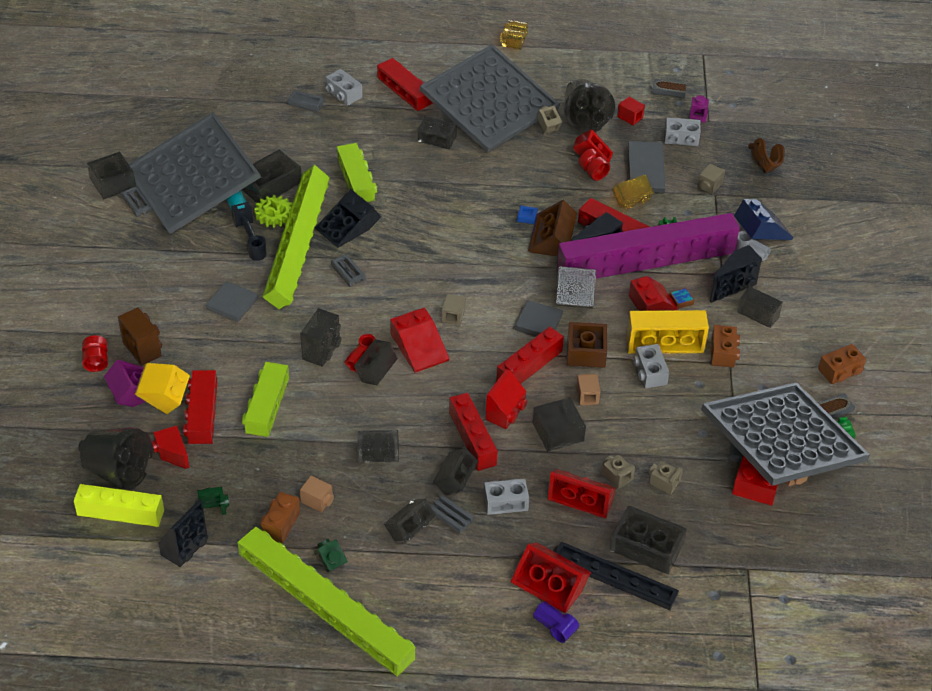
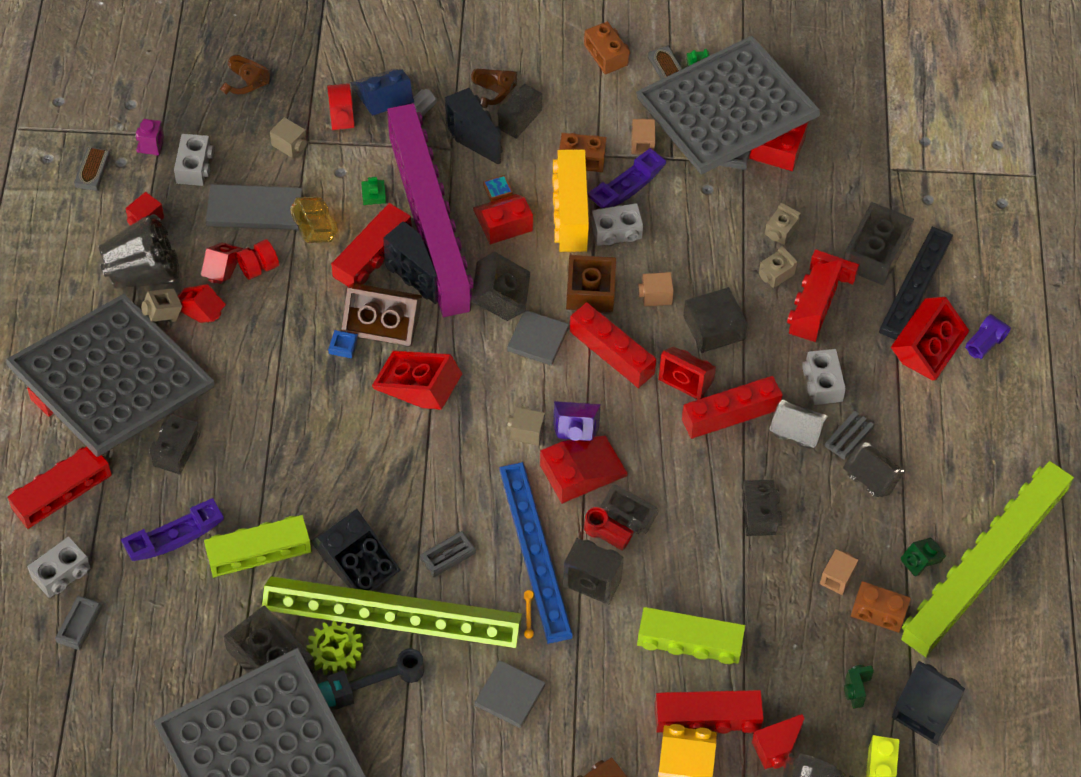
camera: 90 degrees left, 10 degrees up
(280, 312) = (528, 596): none -> light orange hinge
(351, 315) = (535, 553): none -> blue tile
(365, 134) = (174, 534): none -> dark purple slope
(454, 332) = (576, 420): none -> dark purple torso
(494, 251) = (419, 378): none -> red slope
(553, 139) = (201, 303): none -> red slope
(622, 503) = (848, 270): none -> red plate
(696, 376) = (629, 182): none -> dark purple slope
(745, 193) = (340, 106): none -> red brick
(747, 382) = (642, 135): none -> medium nougat brick
(788, 292) = (491, 79): none -> reddish brown helmet

